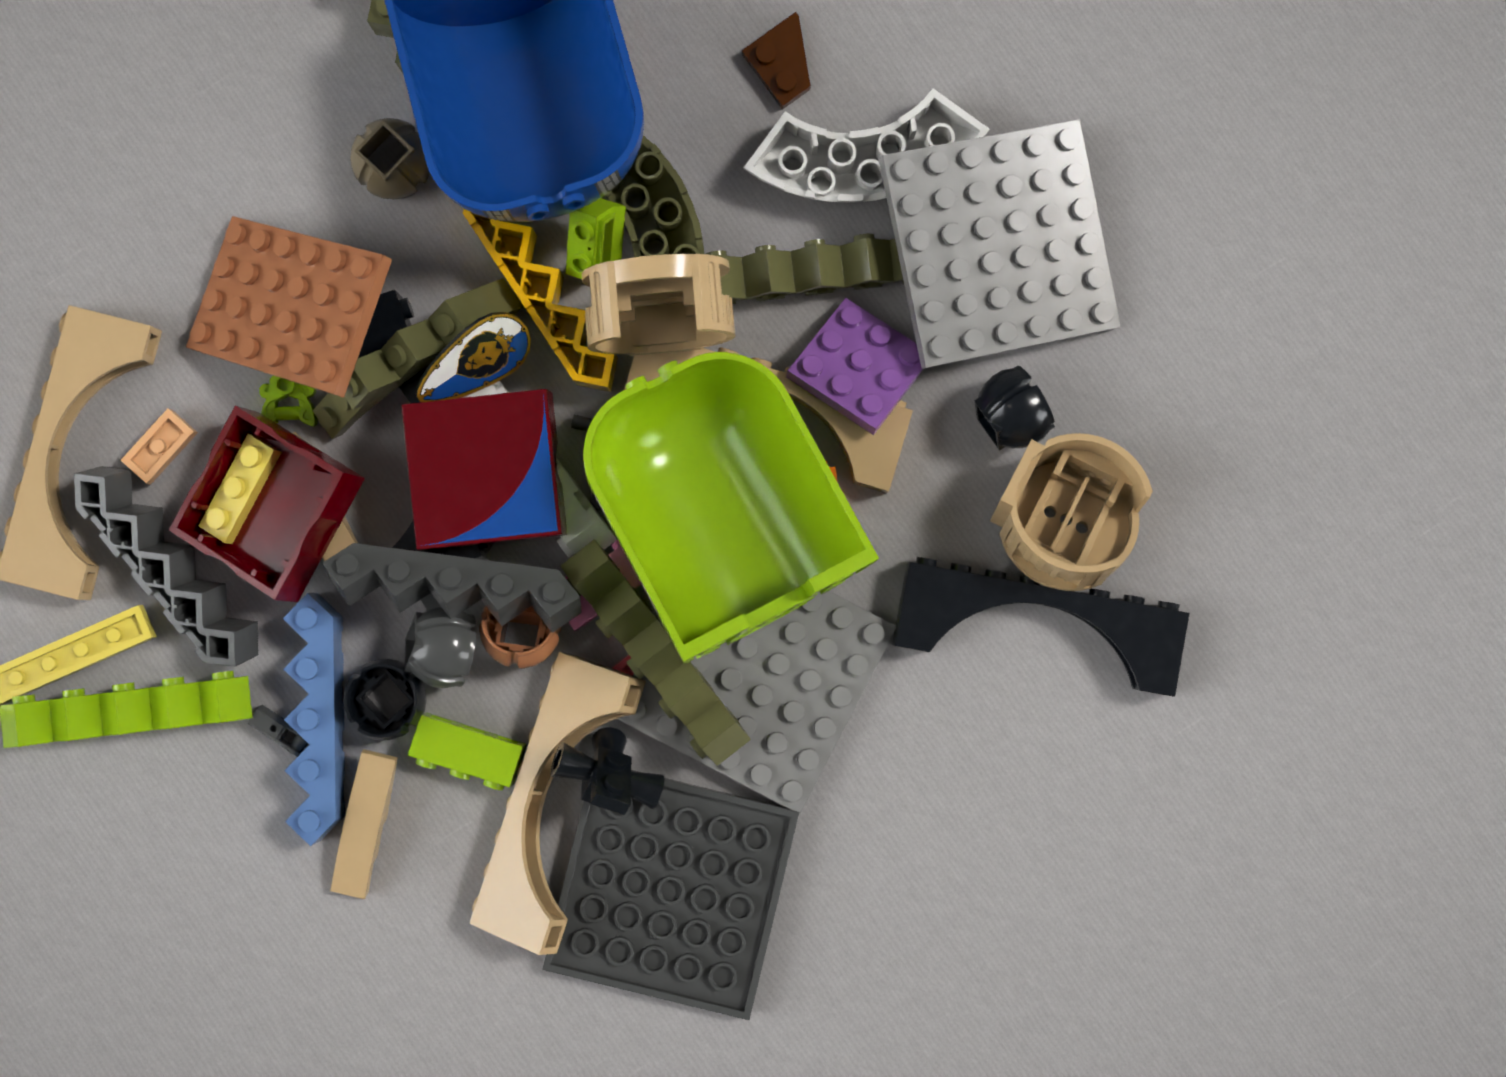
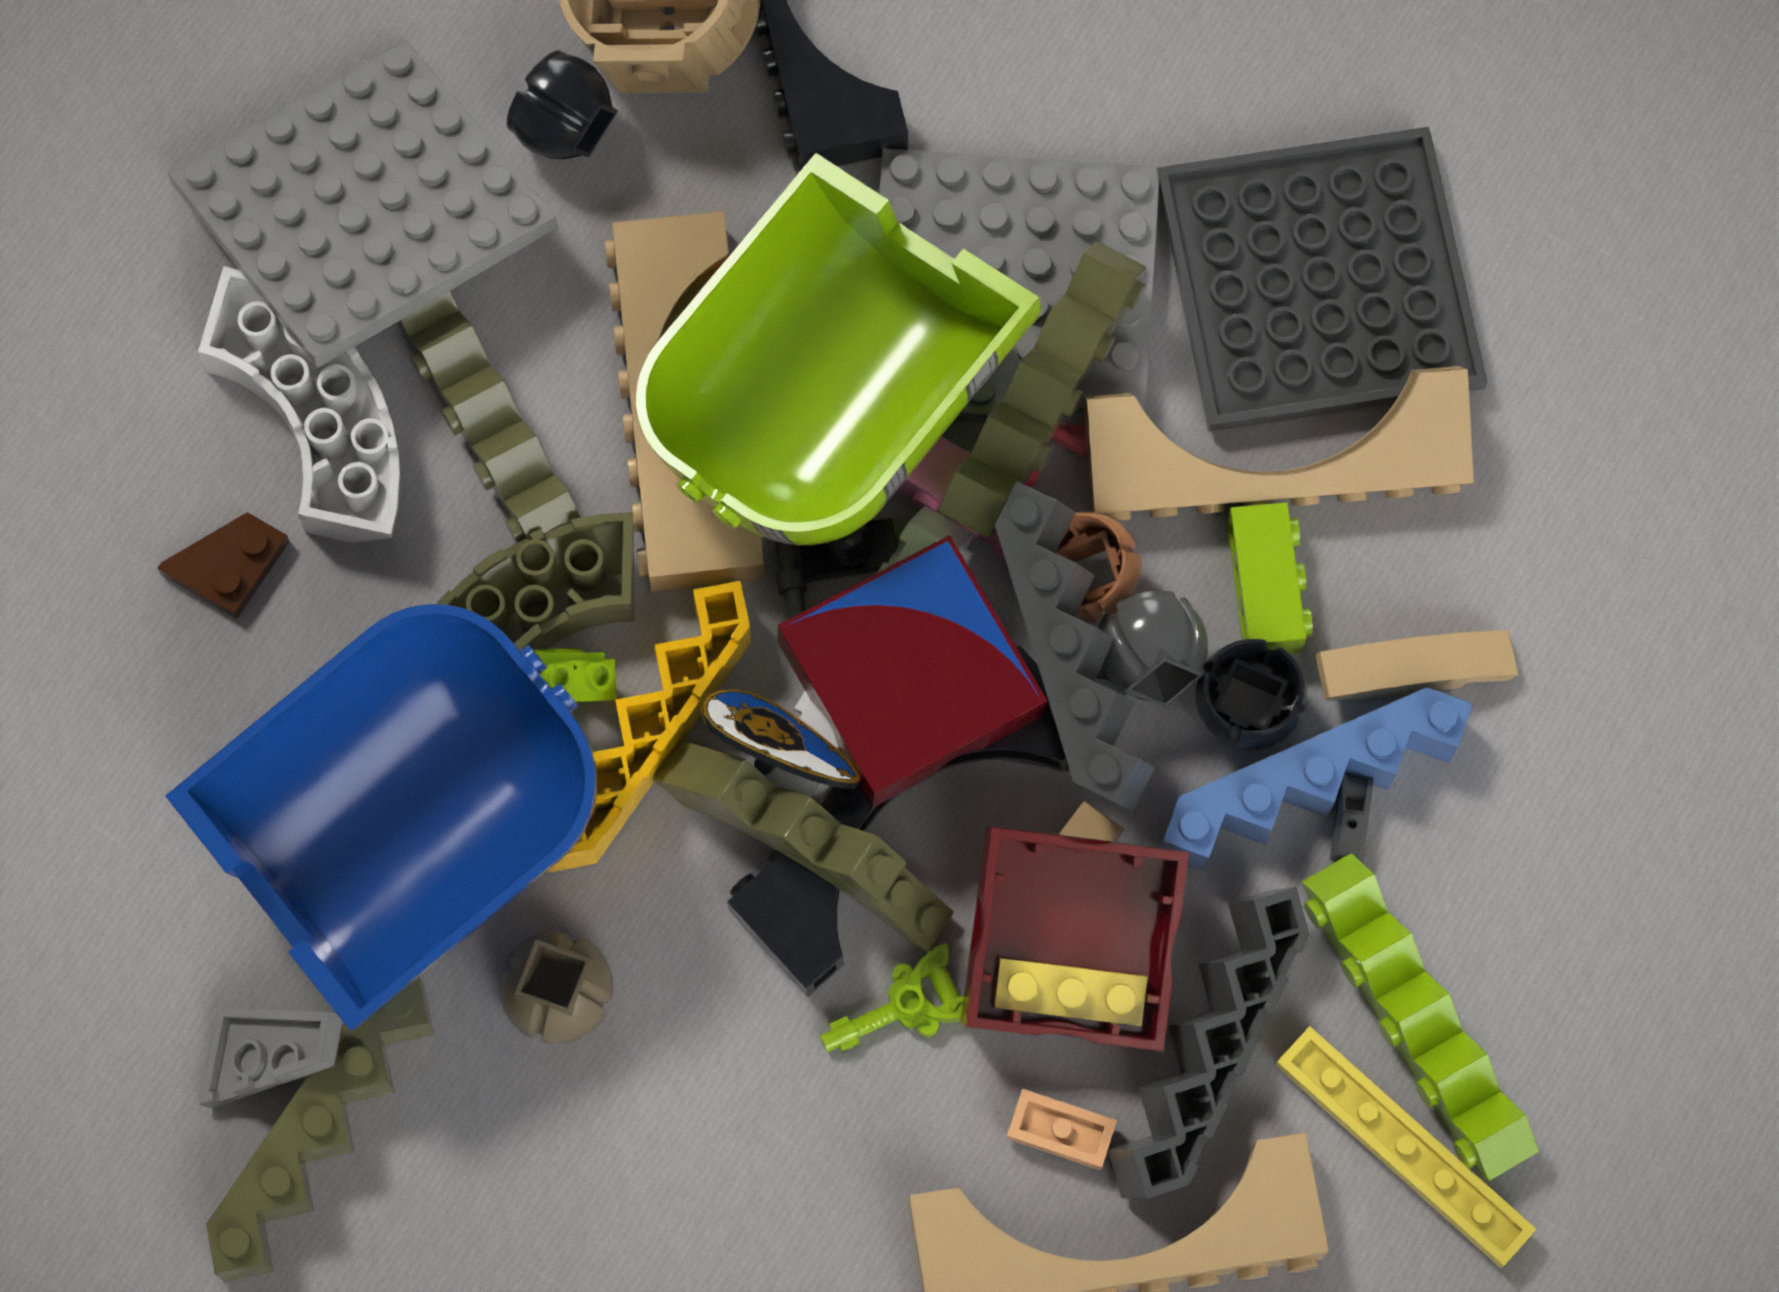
camera: 115 degrees left, 15 degrees down
(289, 305) = (807, 1013): nougat plate -> none
(608, 774) = (1216, 385): black brick -> none
(658, 304) = (612, 528): tan piece -> none
(858, 366) = (583, 307): medium lavender plate -> none

